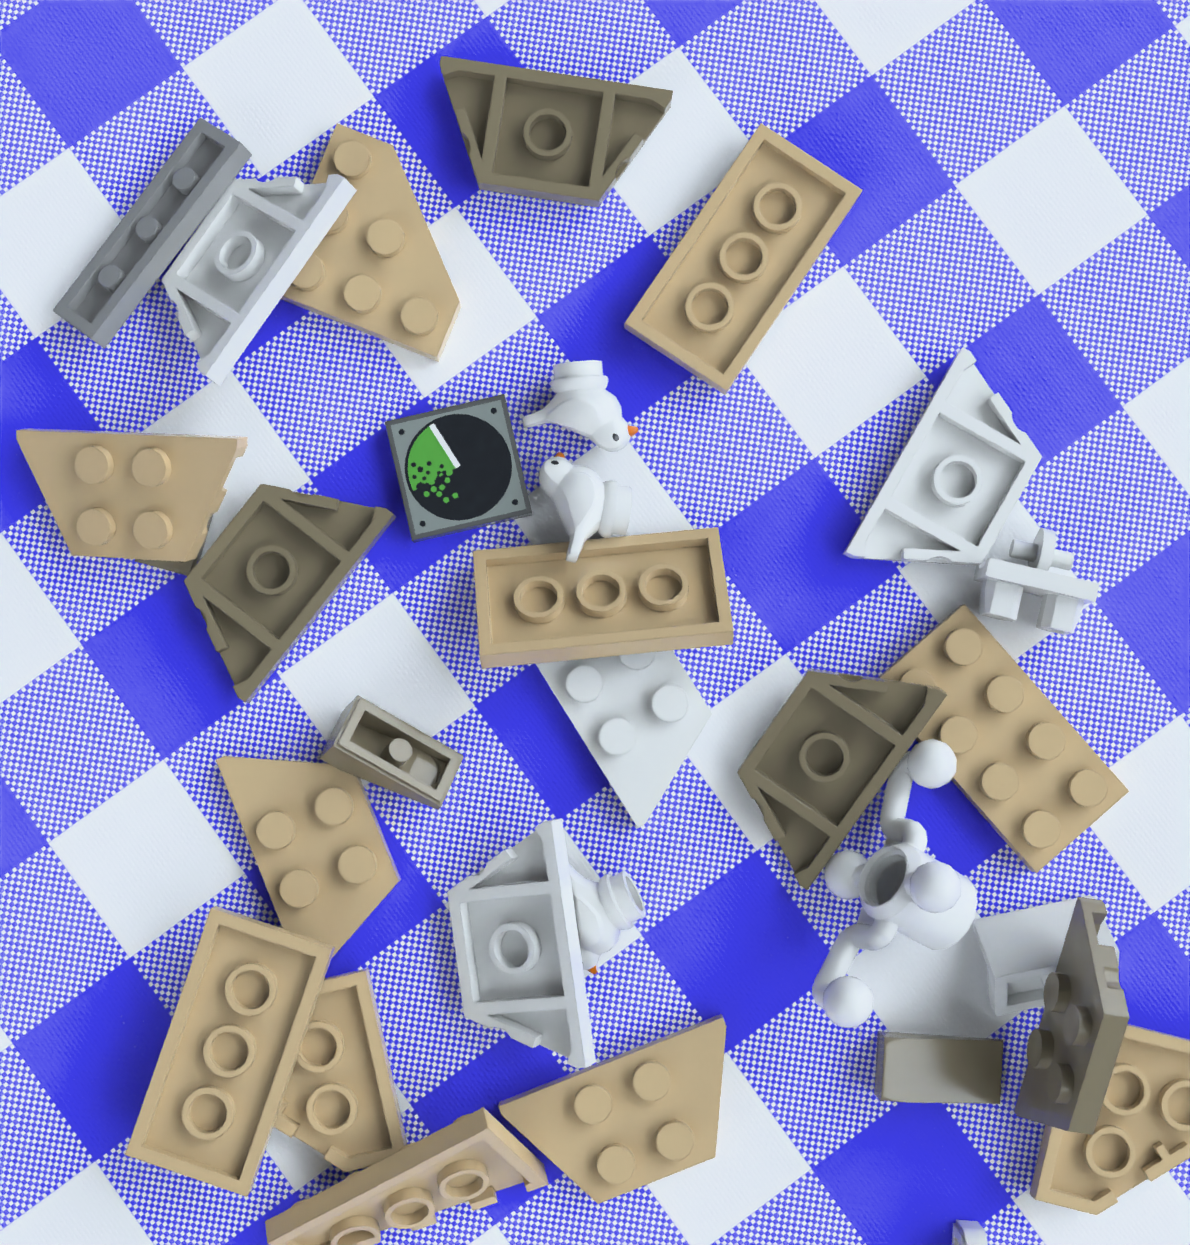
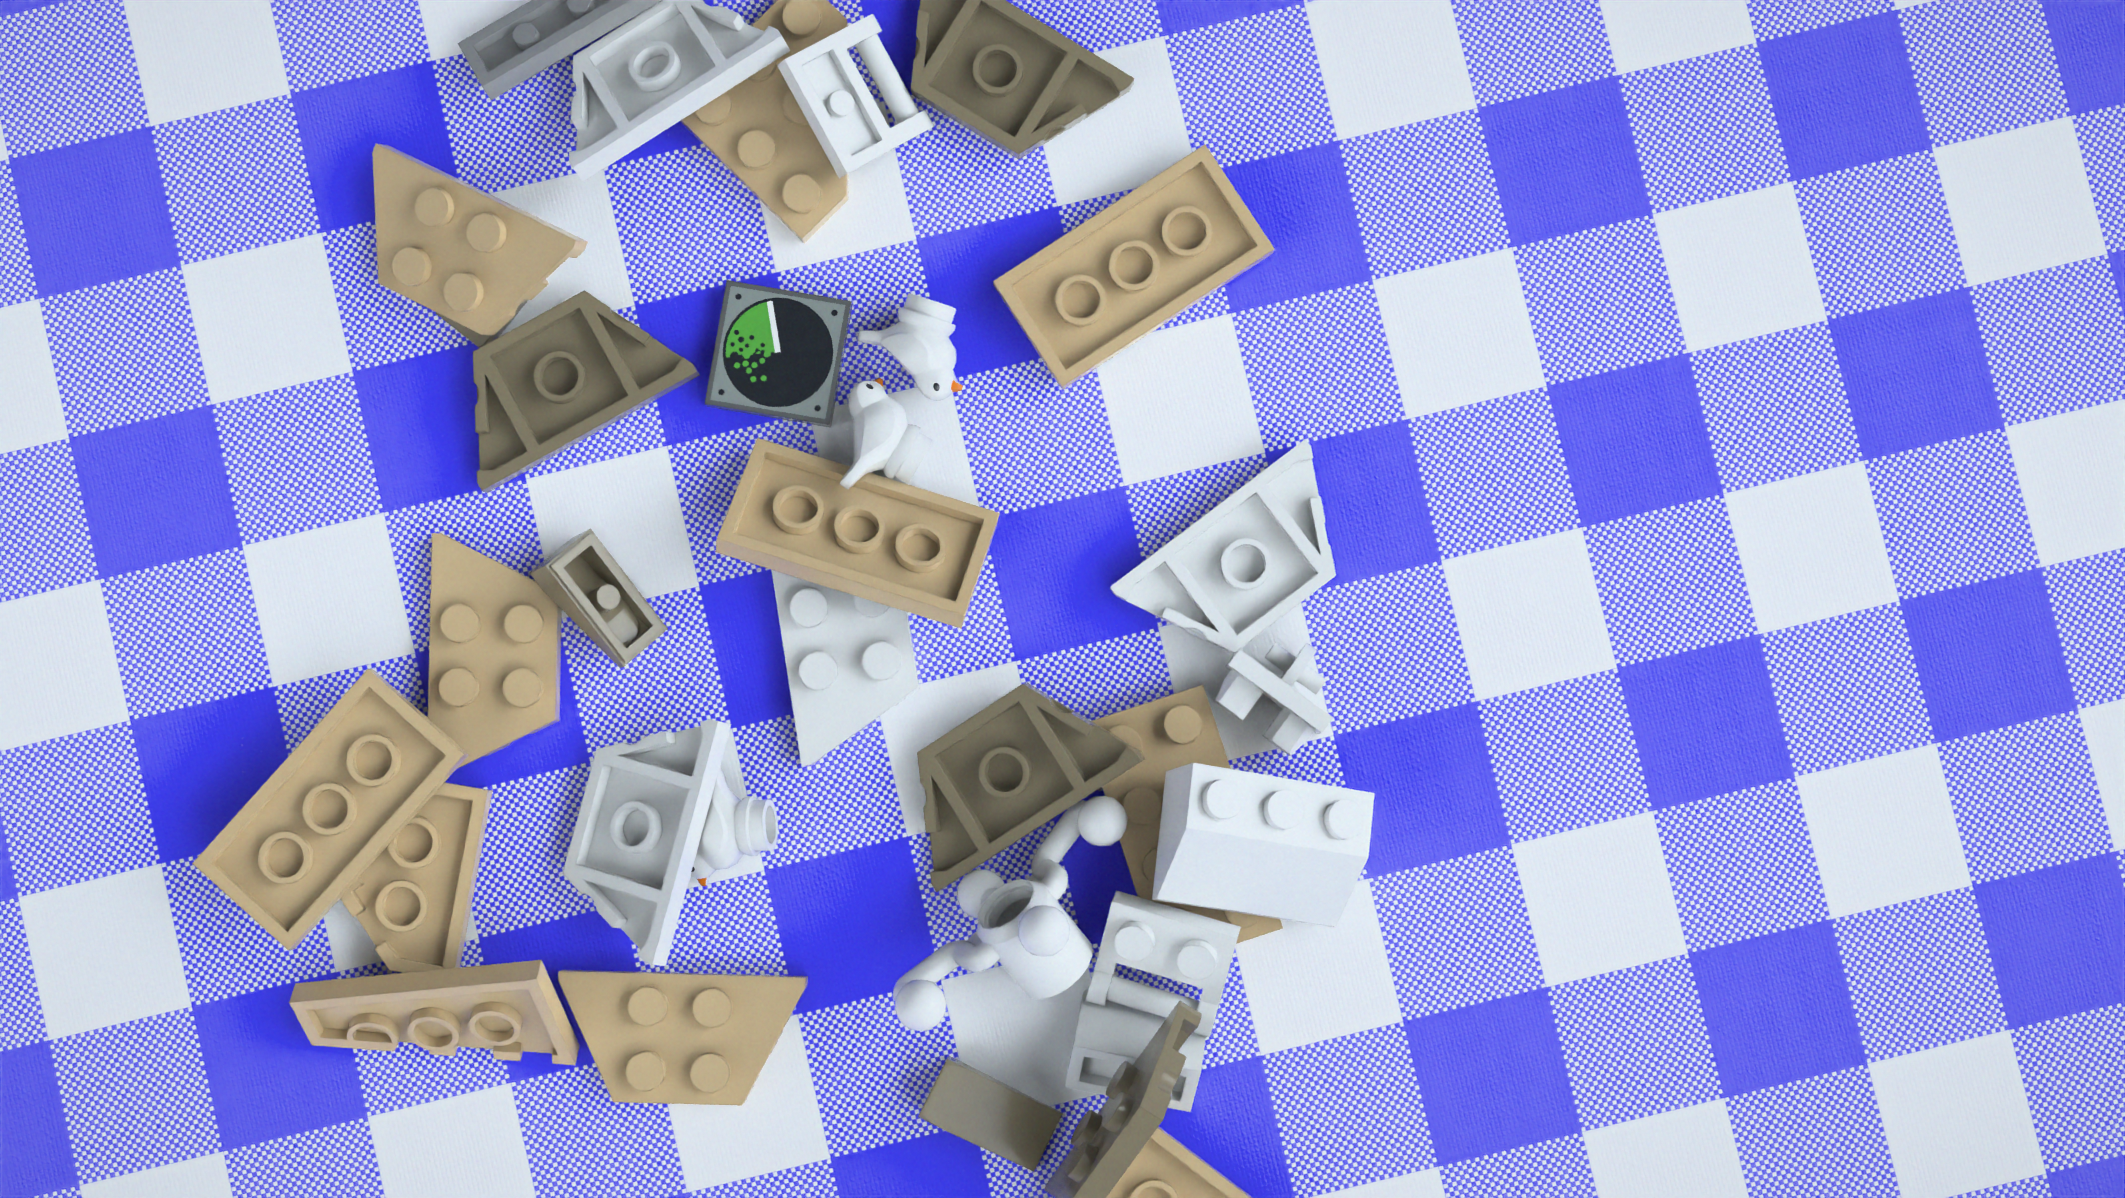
camera: 25 degrees right, 0 degrees up
(420, 218) = (840, 102): none -> white plate
(1038, 850) = (1167, 945): none -> white plate
(1084, 723) = (1260, 844): none -> white slope

